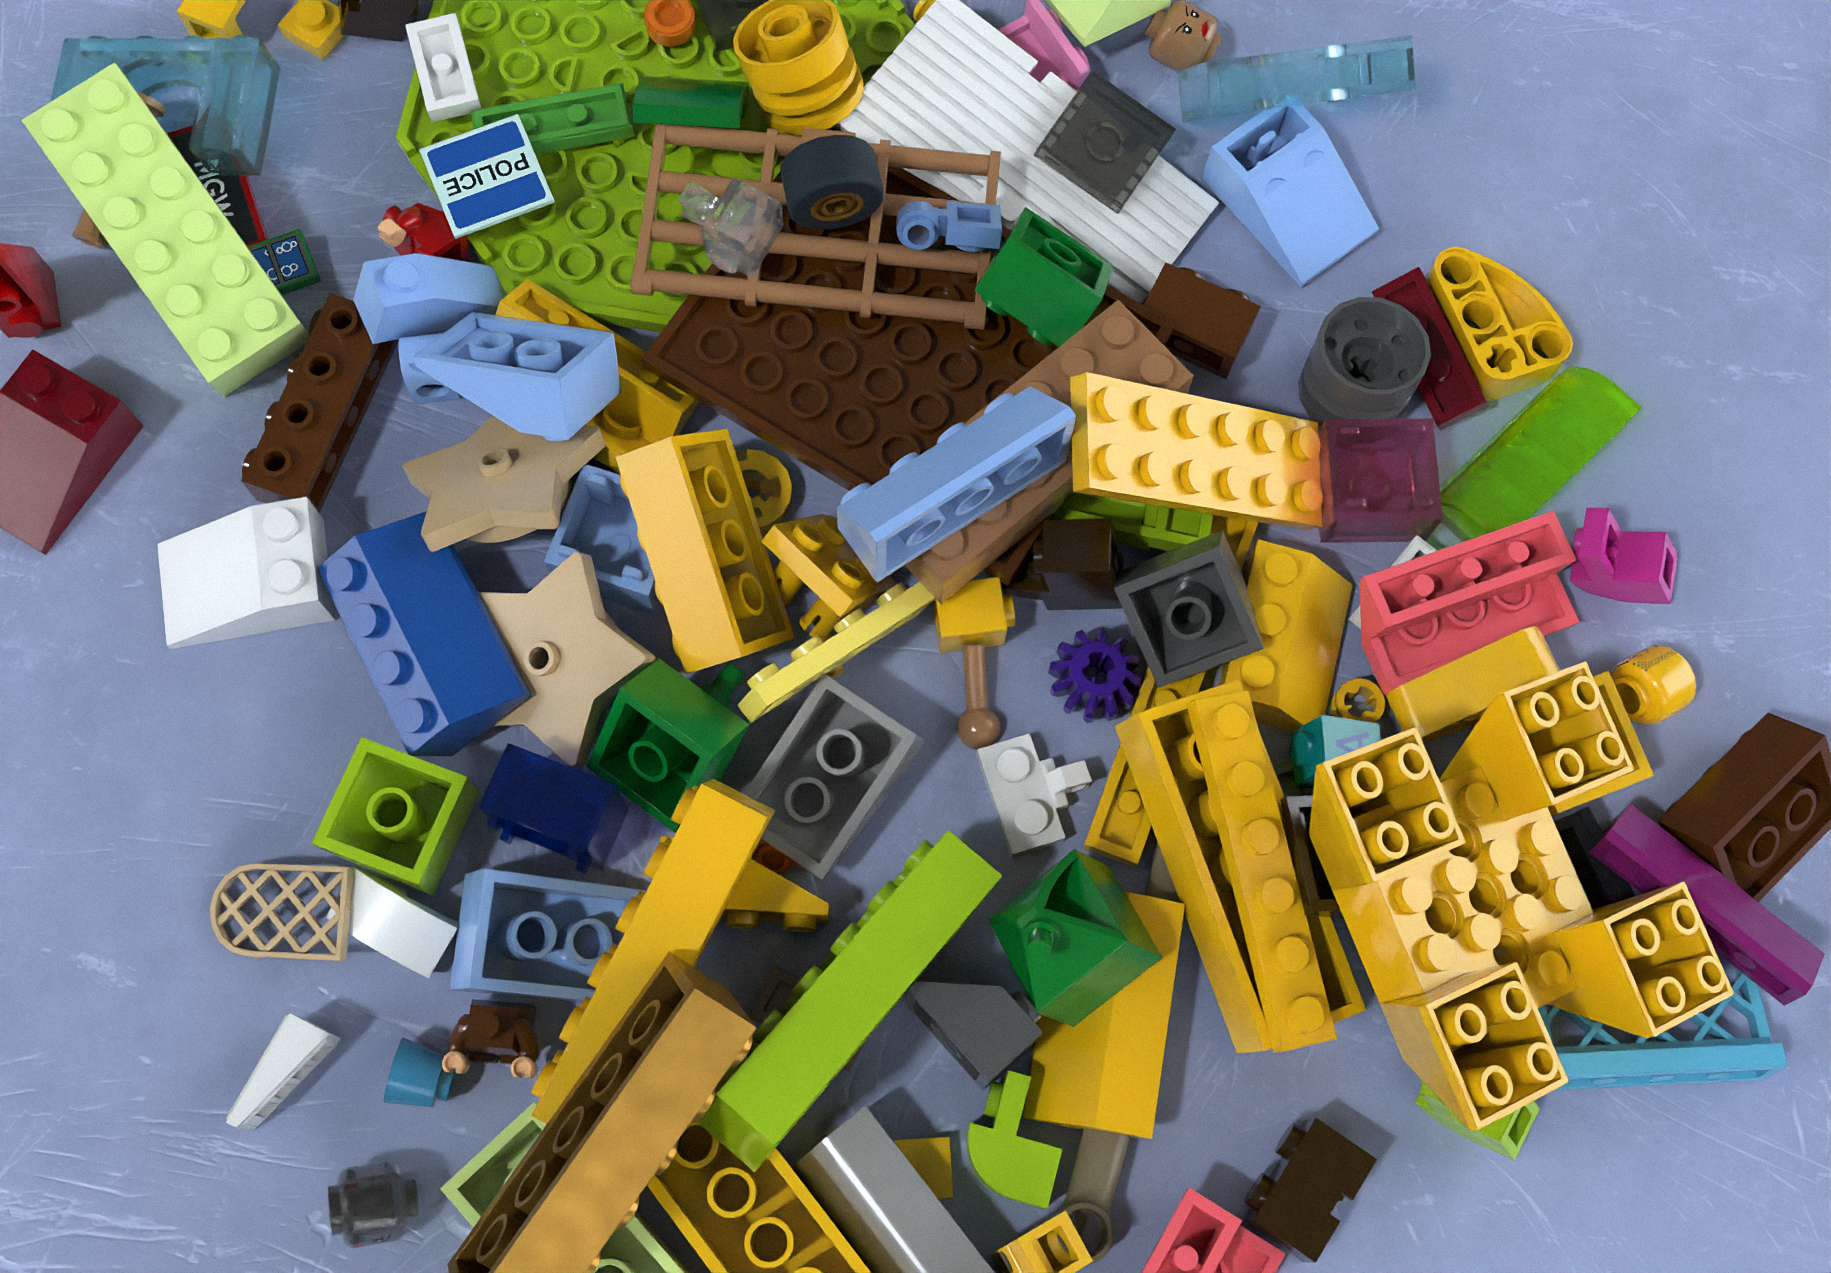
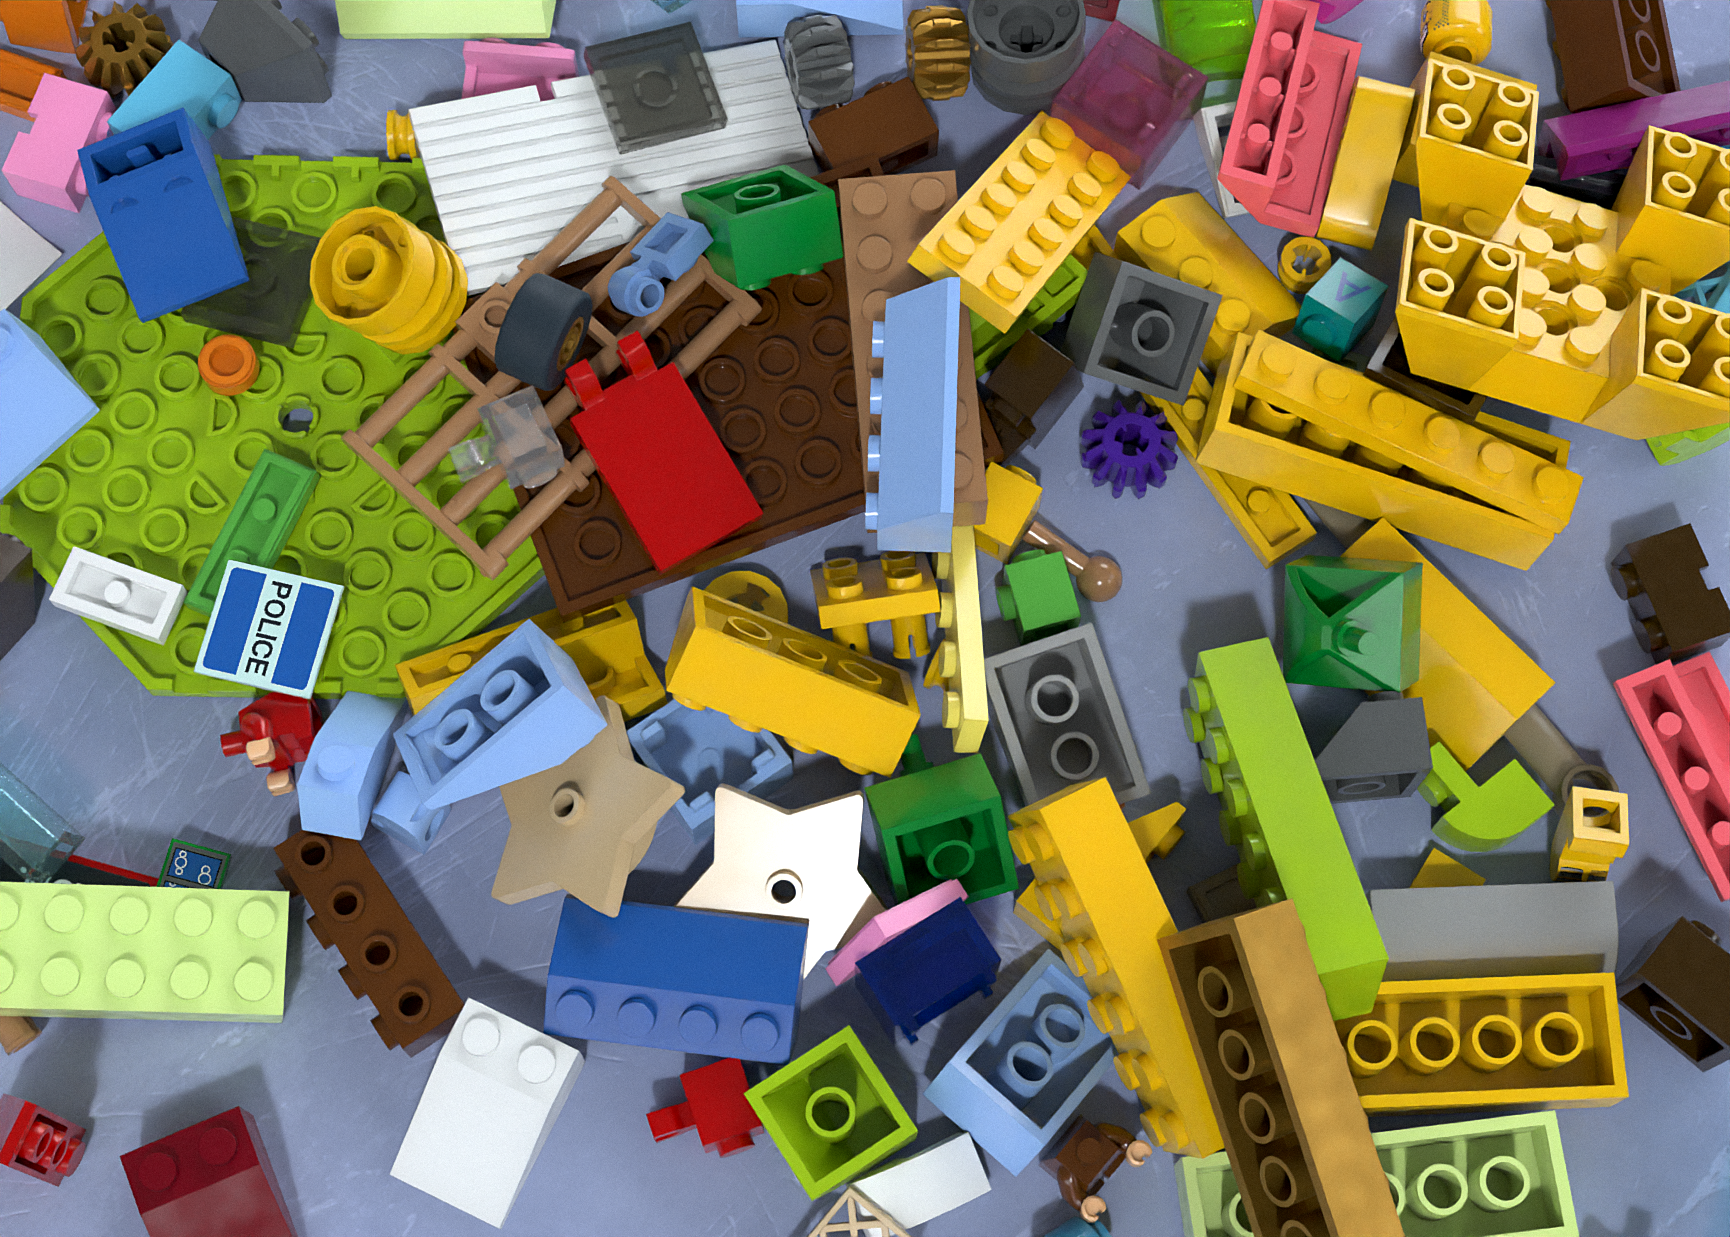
camera: 50 degrees left, 0 degrees up
(344, 724) = (713, 1107): none -> red brick
(562, 750) = (889, 925): none -> bright pink tile
(690, 102) = (343, 399): green slope -> none
(807, 335) = (659, 457): none -> red tile
(923, 689) = (1038, 596): none -> bright green brick
(1028, 792) = (1187, 579): white hinge -> none
(1221, 238) = (818, 62): none -> dark grey gear
(1297, 315) = (938, 52): none -> pearl gold gear

